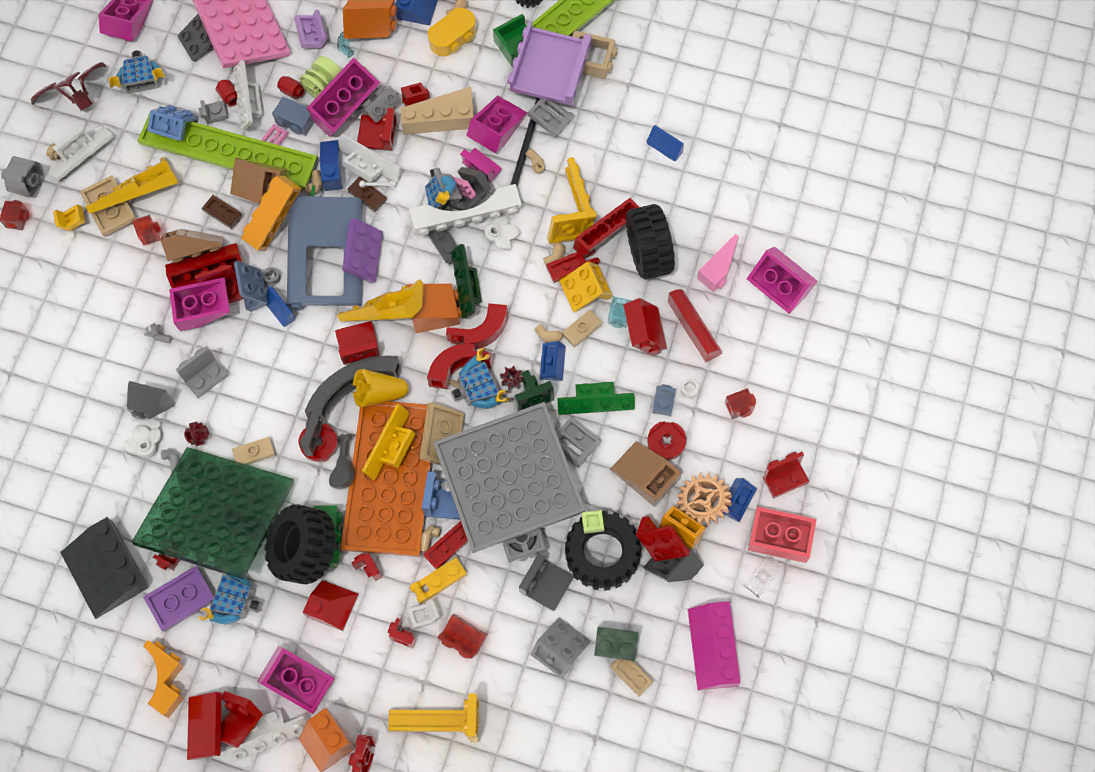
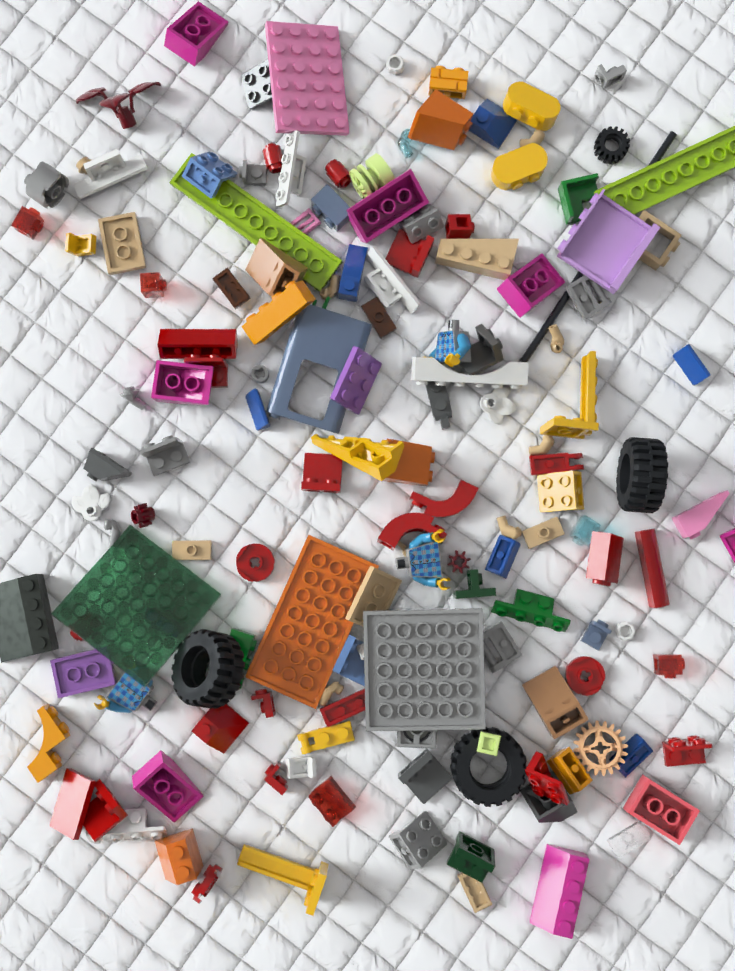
camera: 15 degrees right, 15 degrees up
(137, 74) = (189, 106): torso -> none
(147, 181) = (168, 231): yellow wedge -> none
(187, 242) = (190, 315): medium nougat slope -> none
(250, 285) = (237, 381): sand blue bracket -> none
(310, 30) = (377, 115): lavender bracket -> none
(334, 389) = (300, 509): dark grey arch -> none
(343, 473) = (269, 603): dark grey piece -> none
(377, 388) = (326, 532): yellow cone -> none
(391, 444) = (323, 594): yellow bracket -> none
(392, 184) = (406, 314): white hinge -> none
(462, 184) = (476, 348): bright pink tile -> none
(466, 282) = (446, 449): dark green bracket -> none
(480, 162) = (501, 324): dark pink bracket -> none
(603, 228) = (603, 440): red brick -> none

